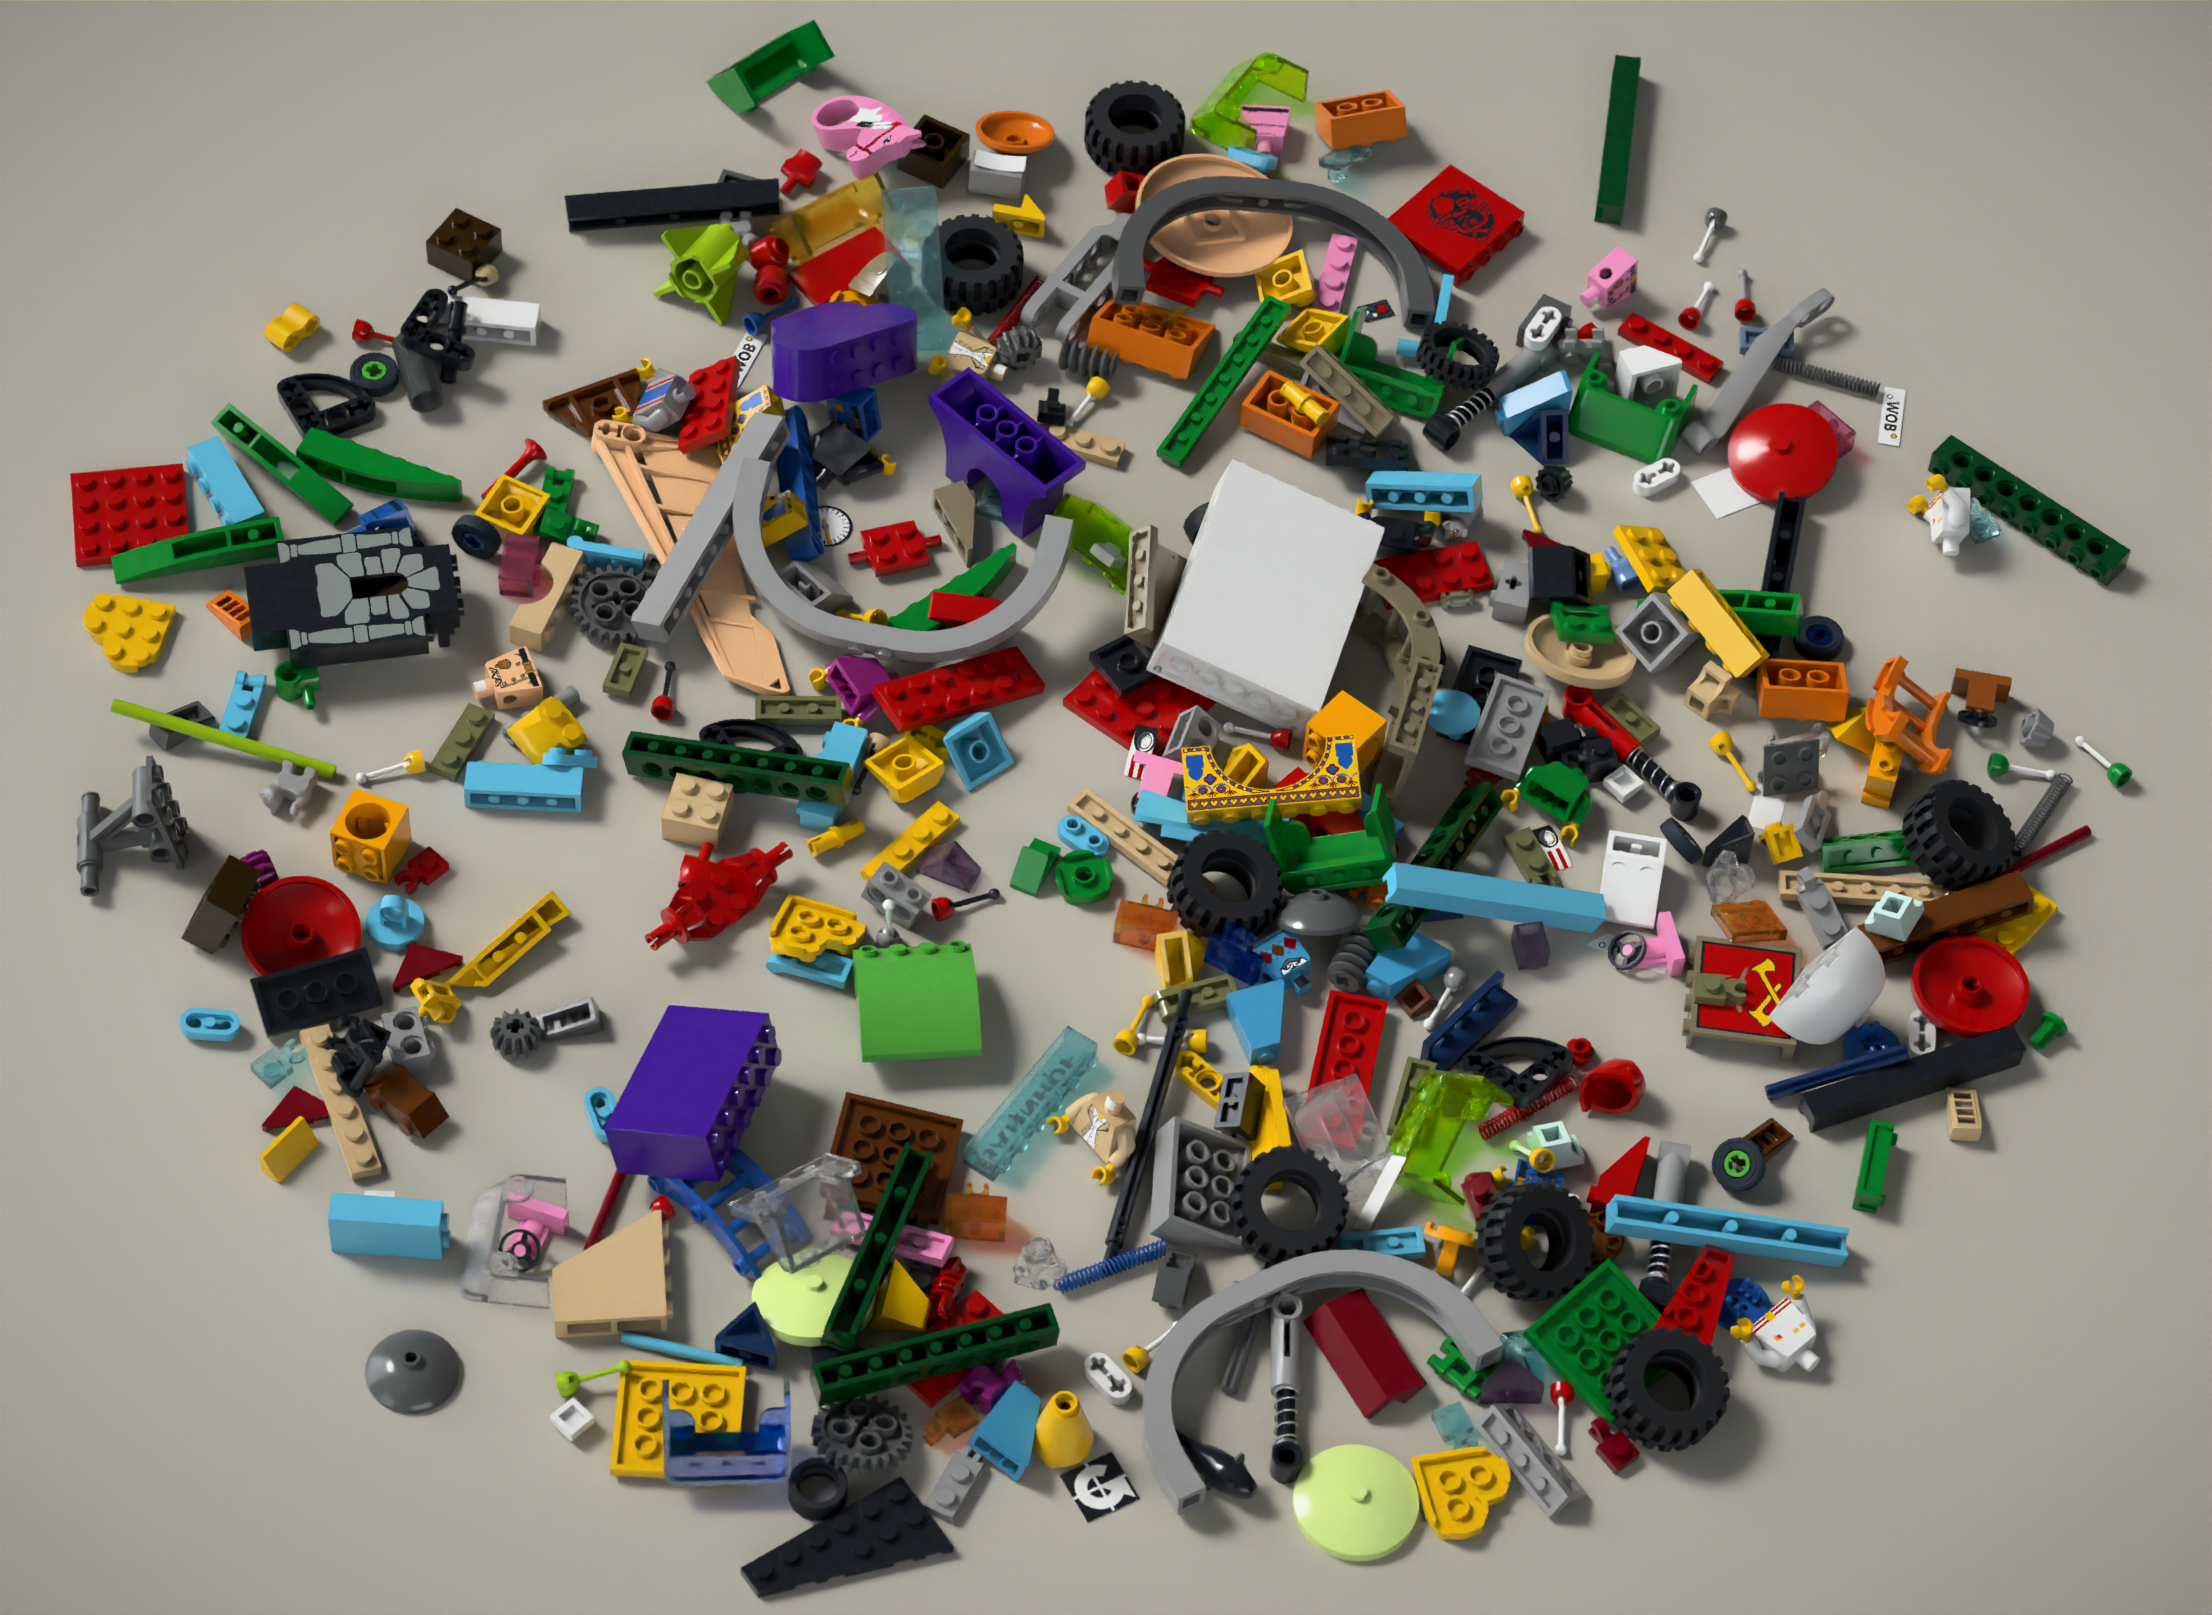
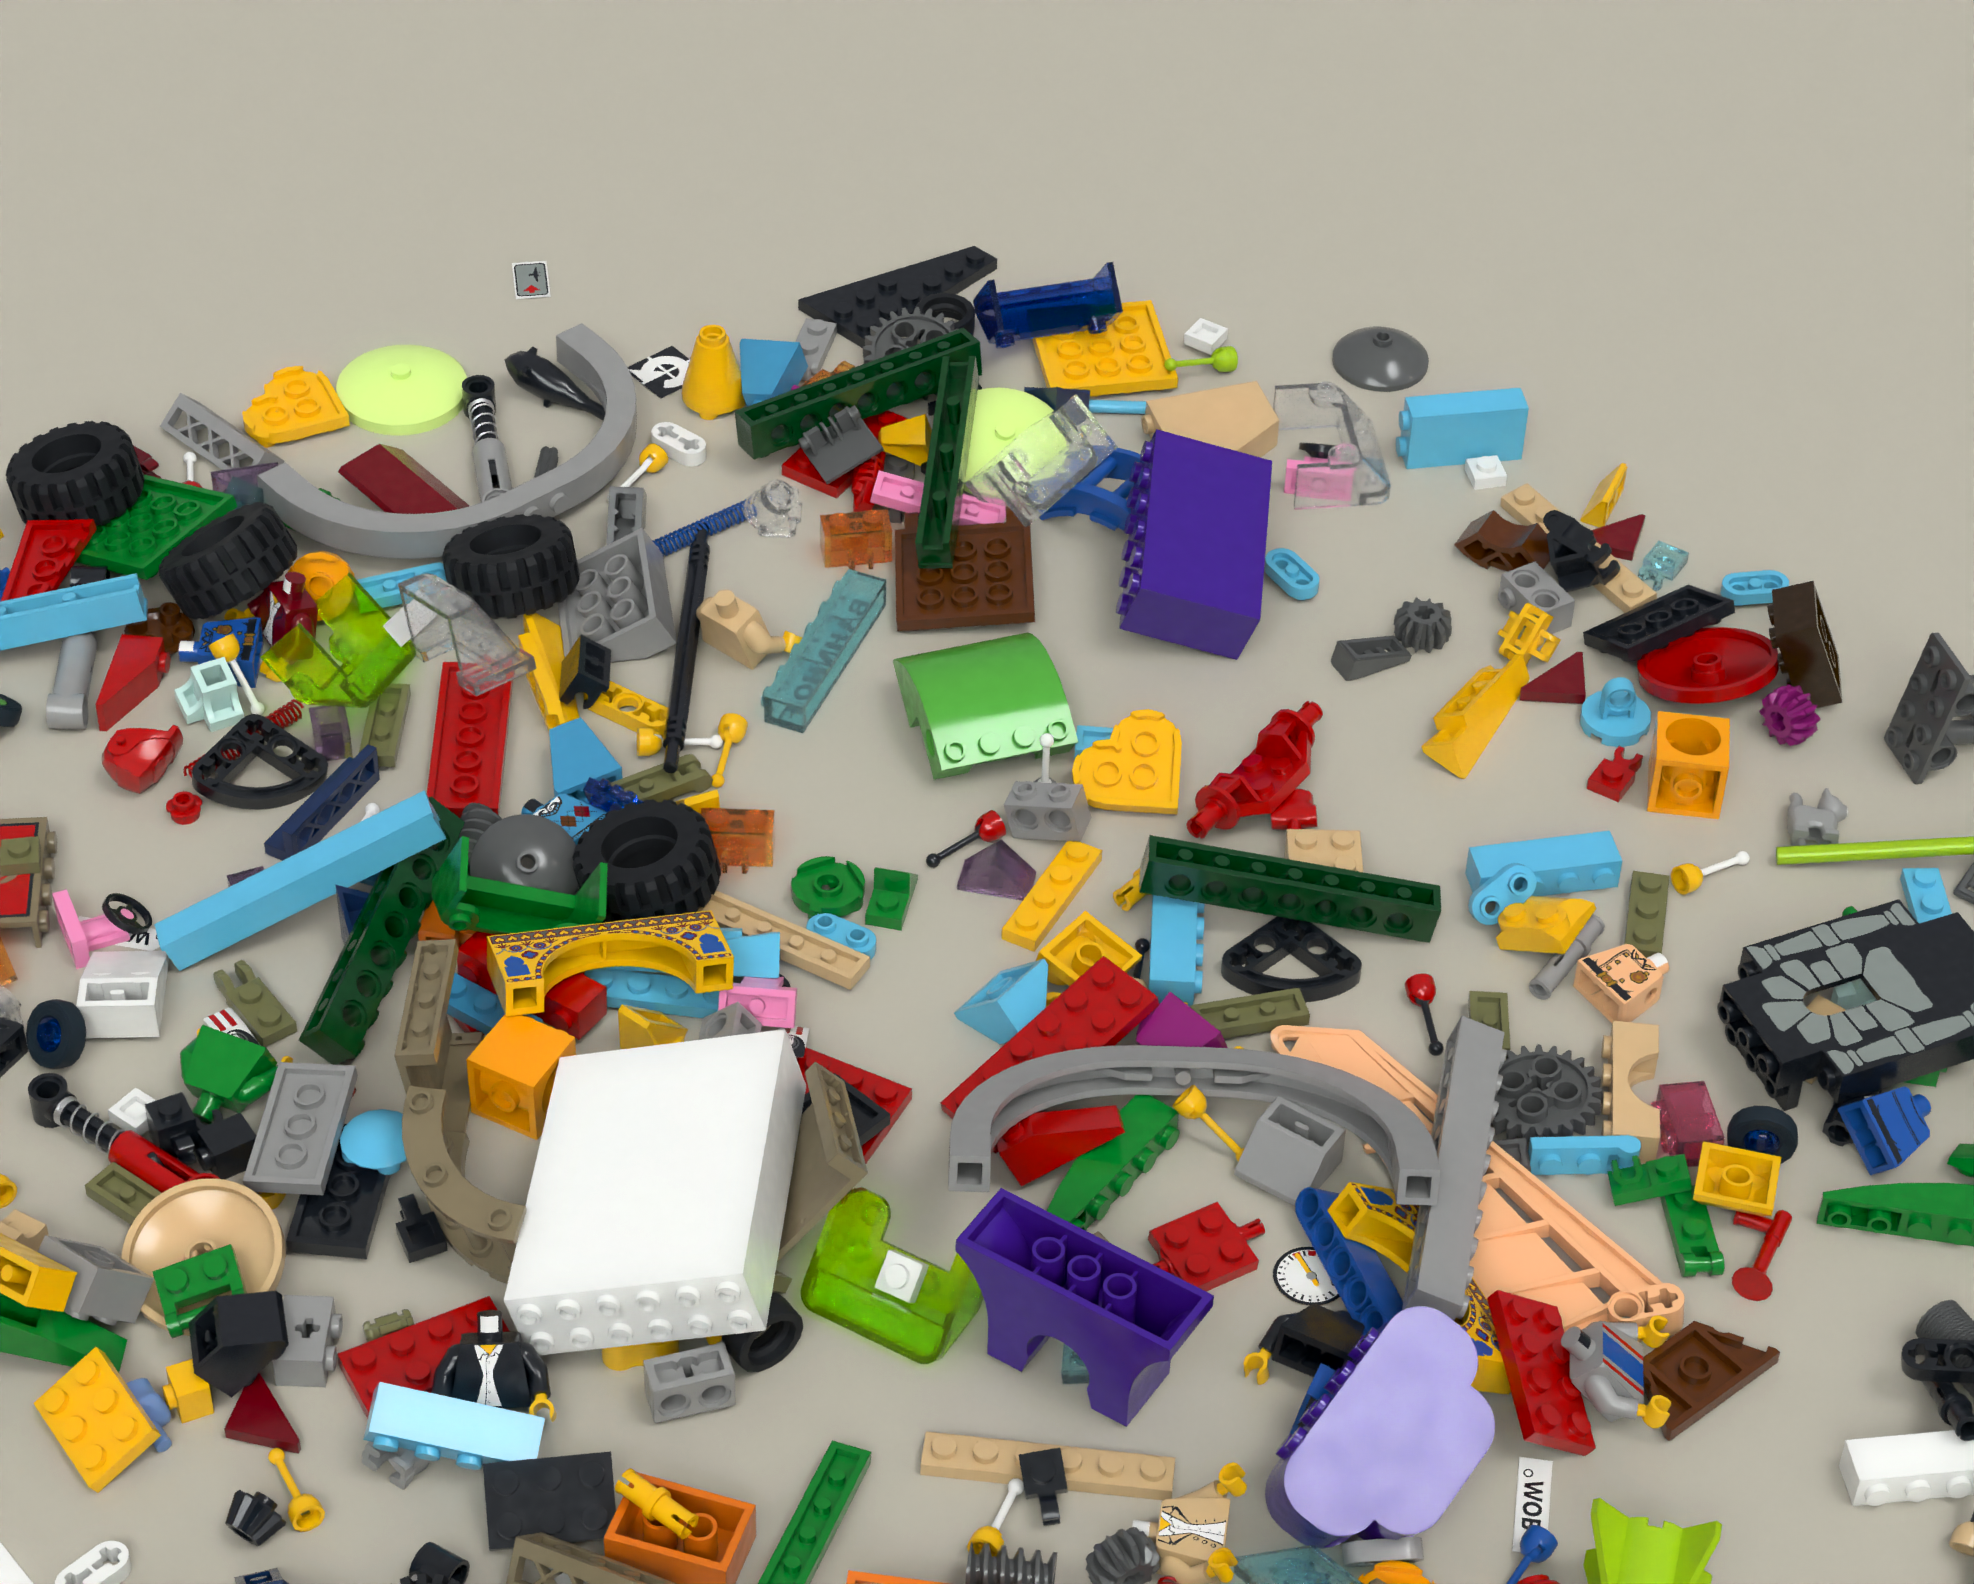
camera: 170 degrees right, 10 degrees down
(965, 1300) = (840, 445): none -> dark grey hinge
(1454, 1425) = (305, 460): clear light blue plate -> none

